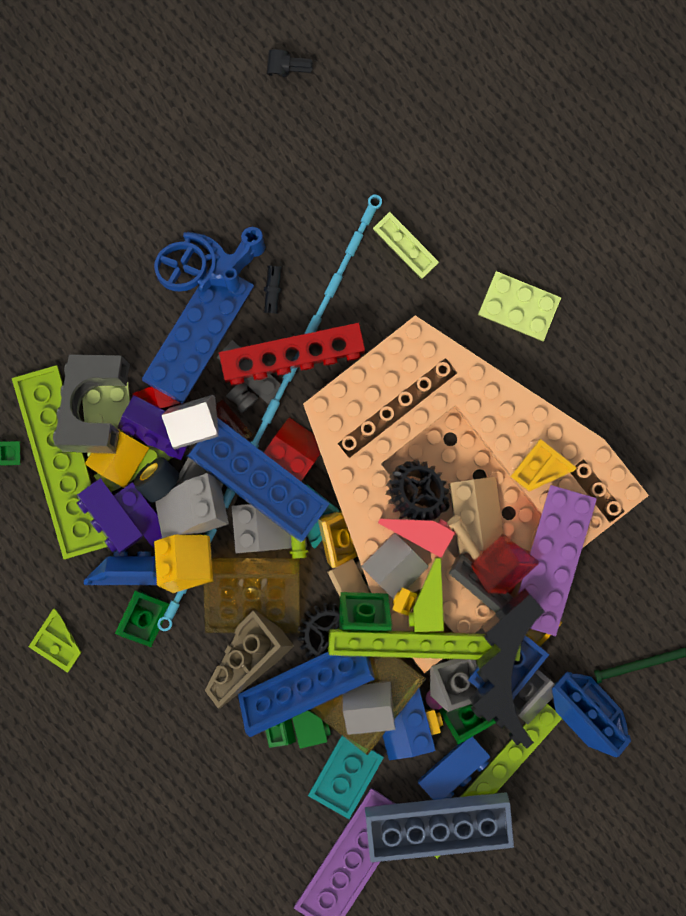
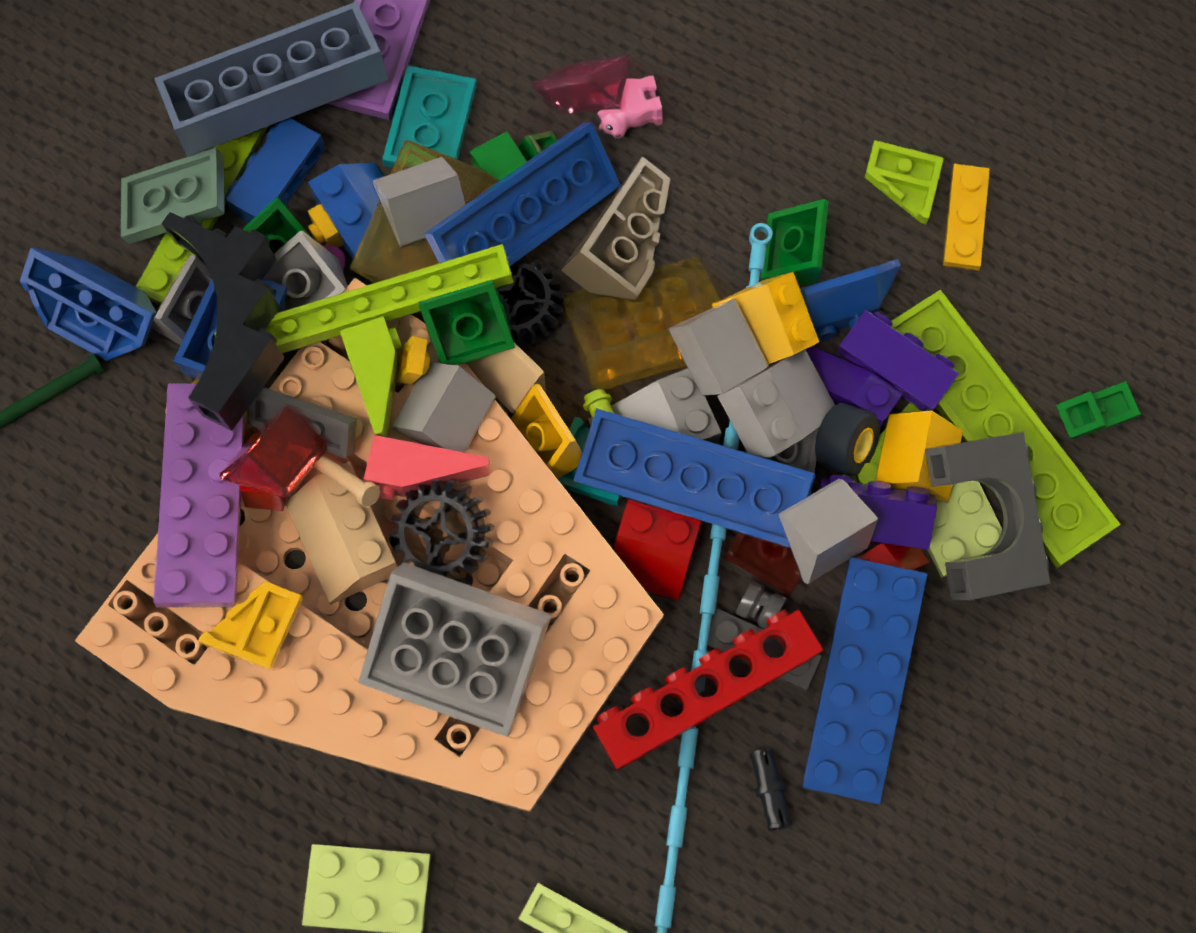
camera: 160 degrees right, 15 degrees down
(27, 605) = (966, 217): none -> yellow plate
(213, 746) = (637, 108): none -> bright pink animal
(217, 551) = (719, 348): none -> light grey slope
(224, 267) = (860, 797): blue piece -> none
(238, 769) = (586, 85): none -> clear pink slope
(430, 418) = (453, 648): none -> light grey slope
(522, 770) = (182, 187): none -> sand green plate

